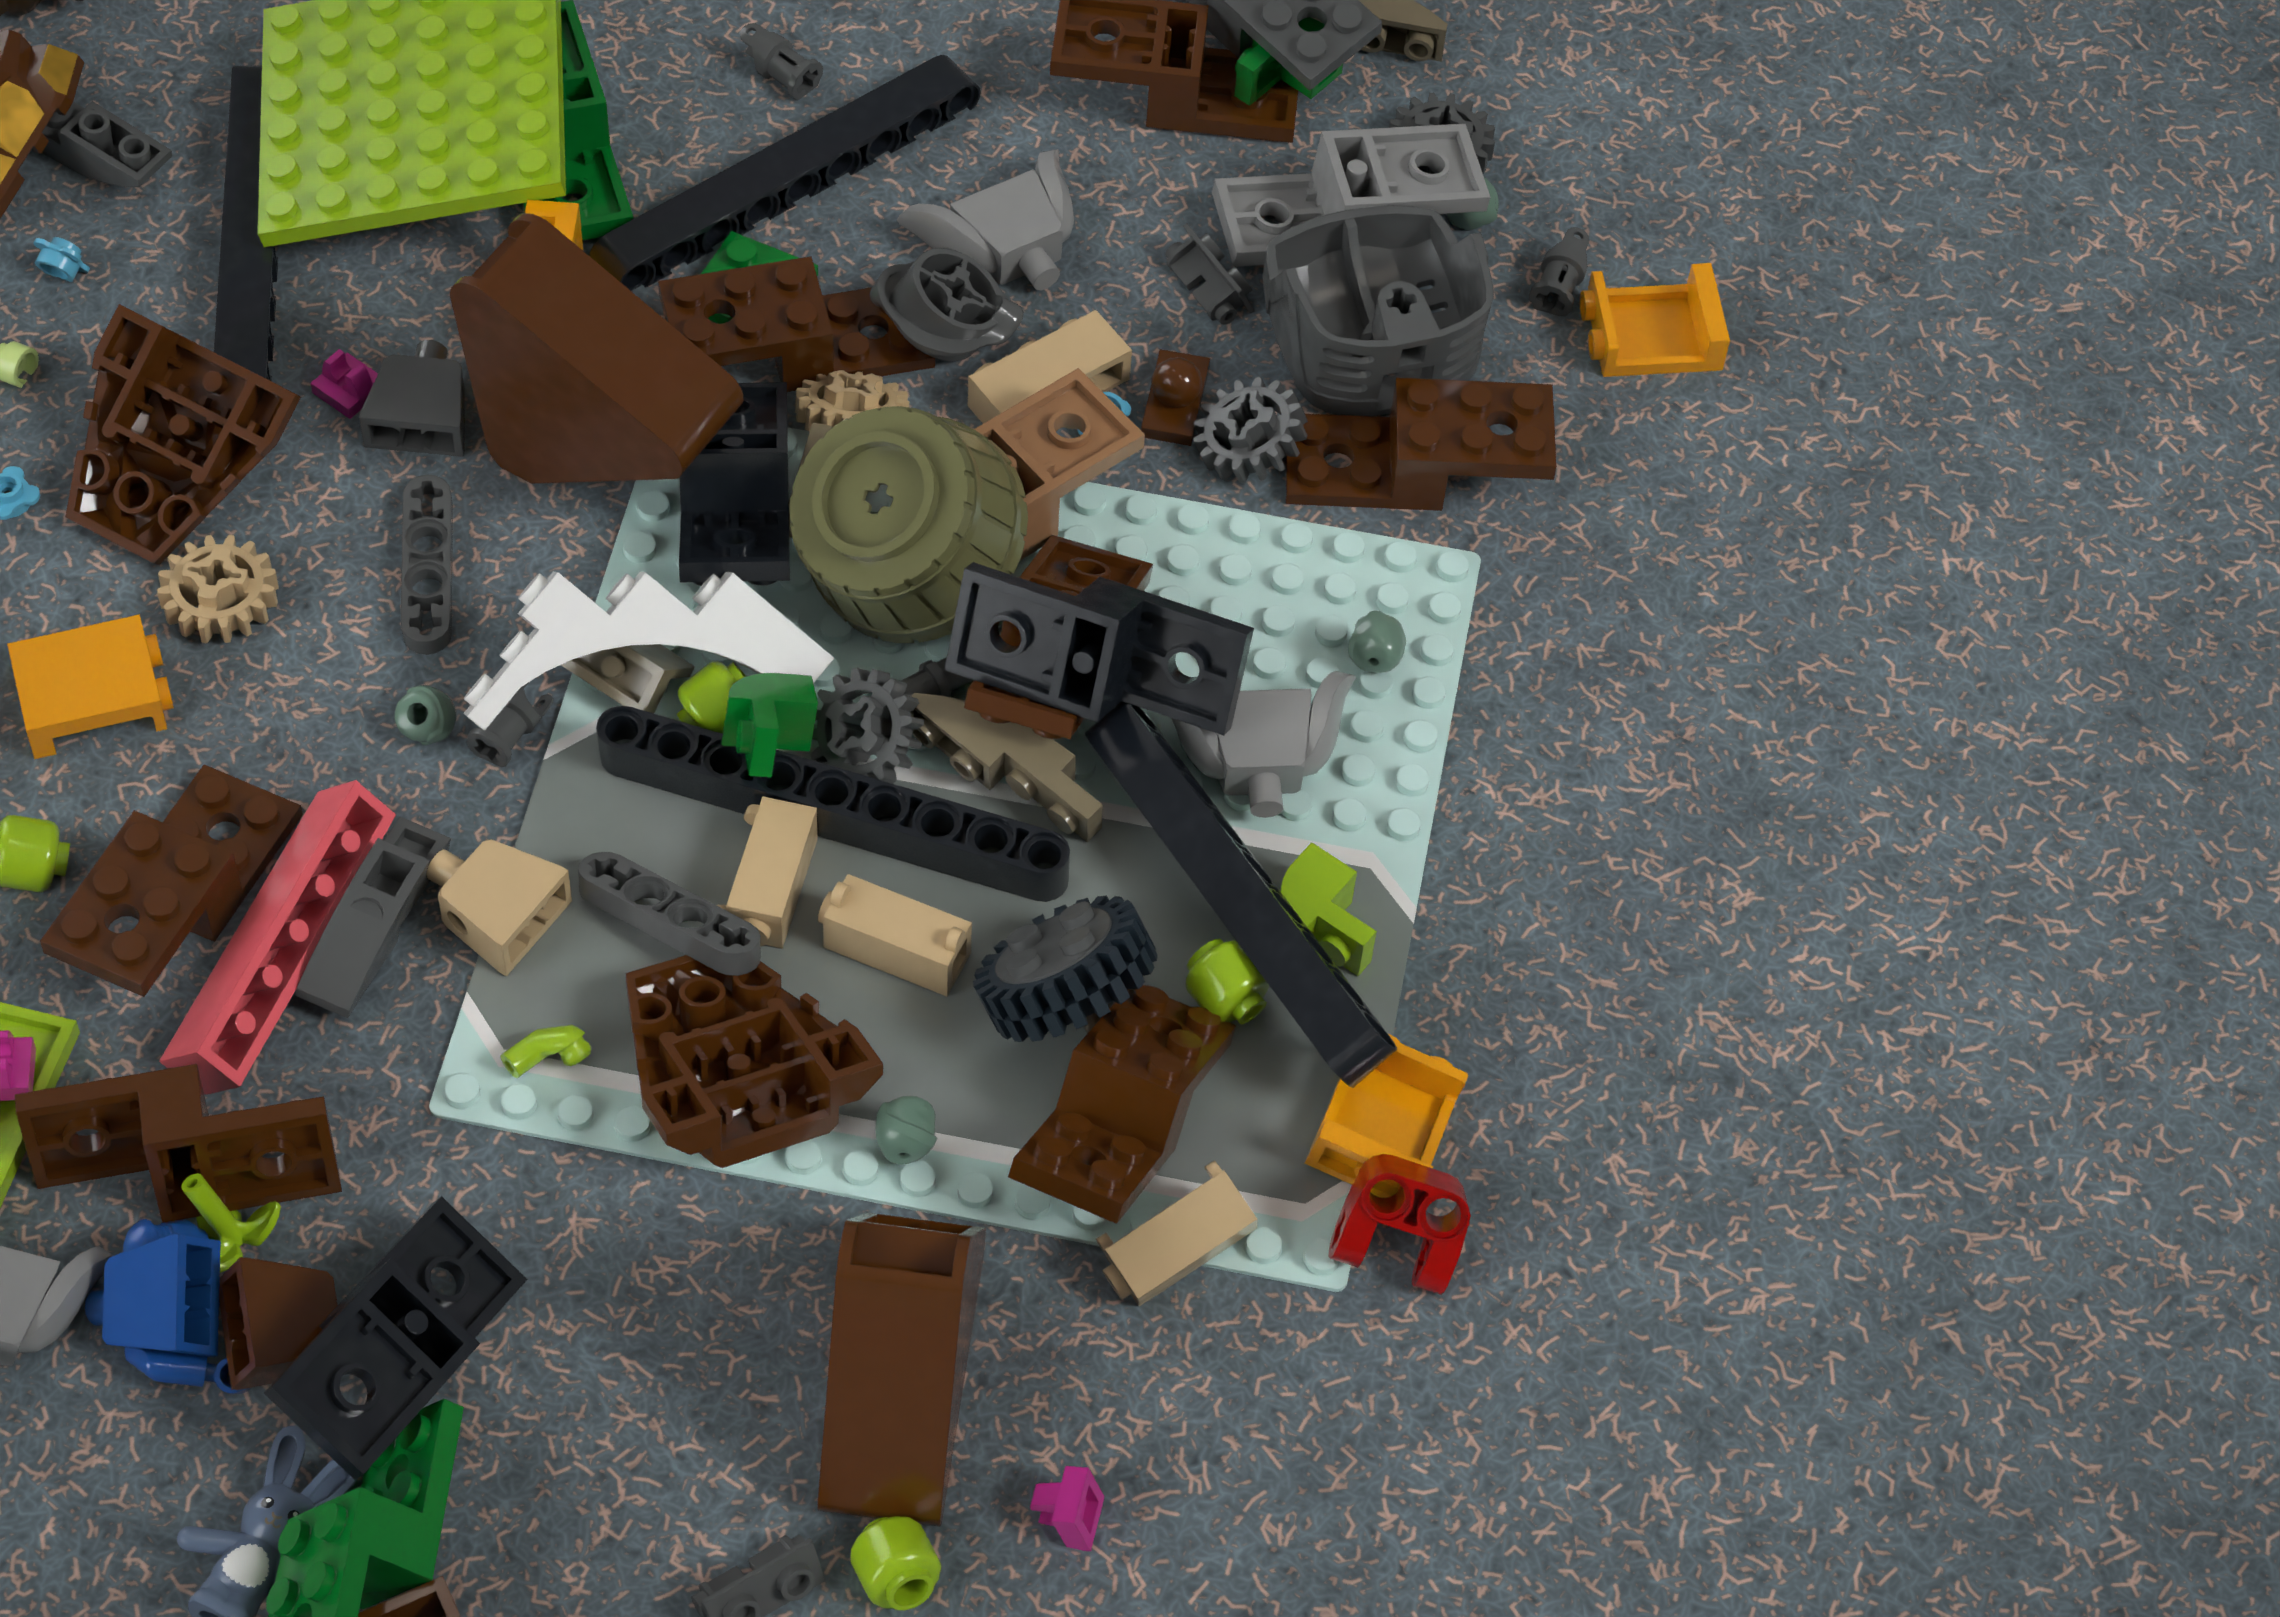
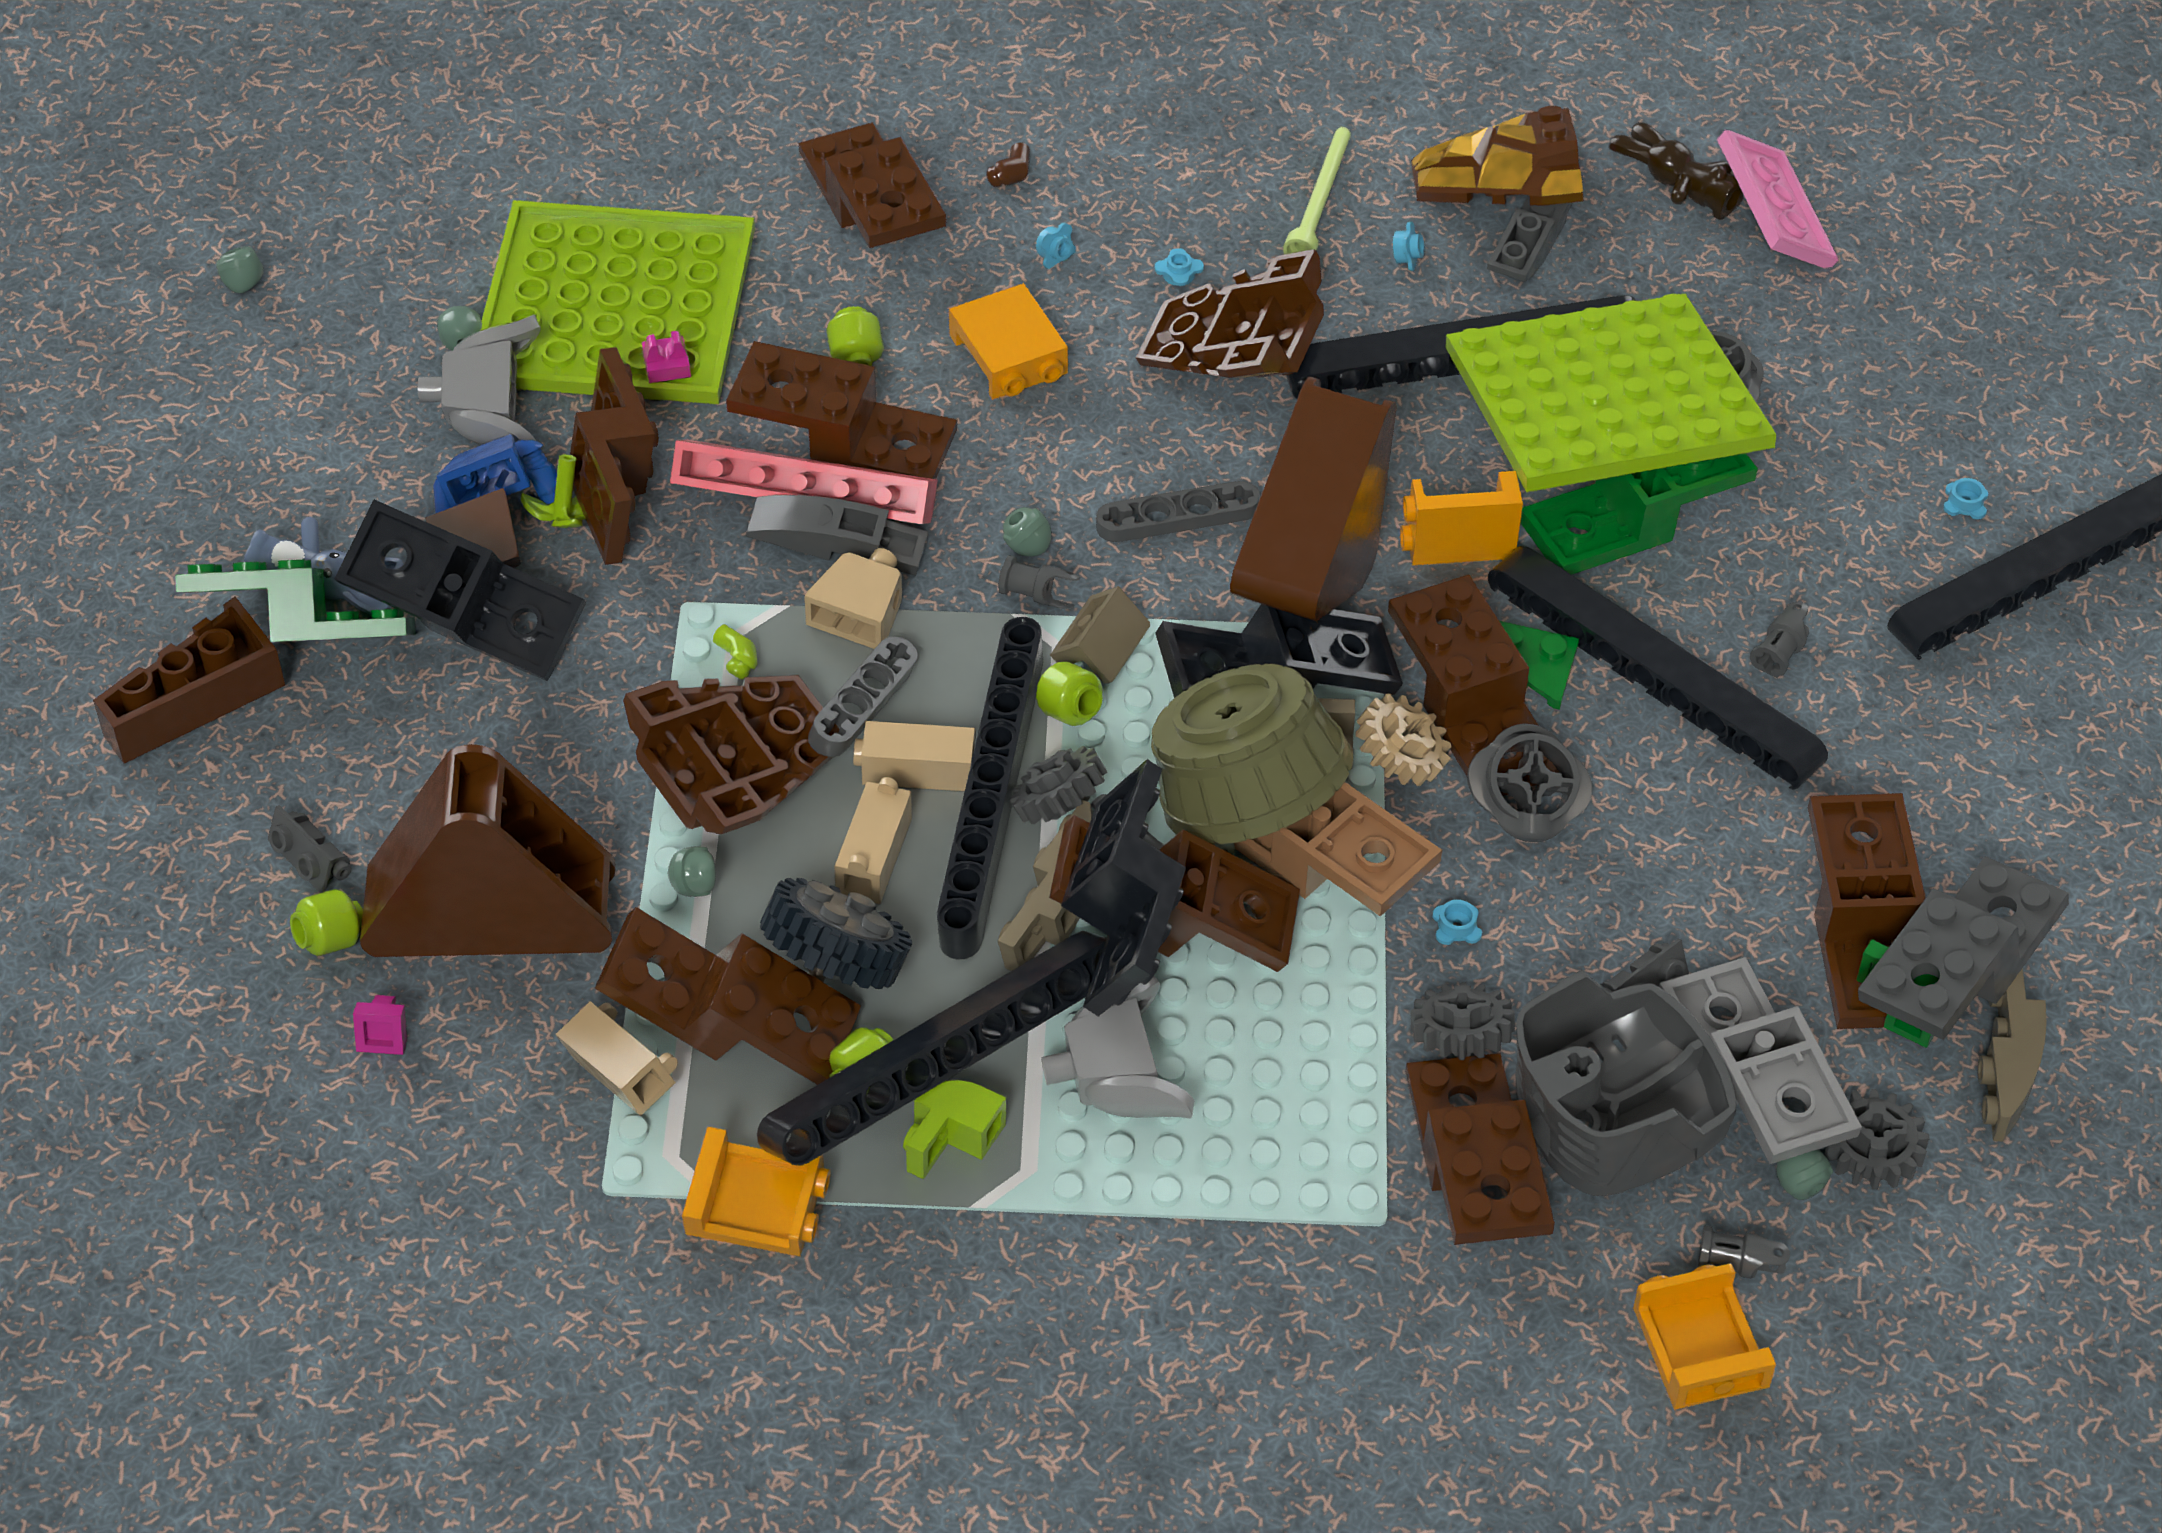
camera: 85 degrees right, 5 degrees down
(221, 588) = (1136, 400): tan gear -> none
(569, 625) = (1119, 661): white arch -> none
(769, 715) = (1041, 704): green brick -> none
(1007, 227) = (1648, 824): light grey torso -> none
(1078, 343) = (1487, 874): tan brick -> none
(1175, 397) = (1500, 967): reddish brown tile -> none
(1377, 642) = (1239, 1133): sand green piece -> none
(1405, 1212) = (656, 1205): red piece -> none

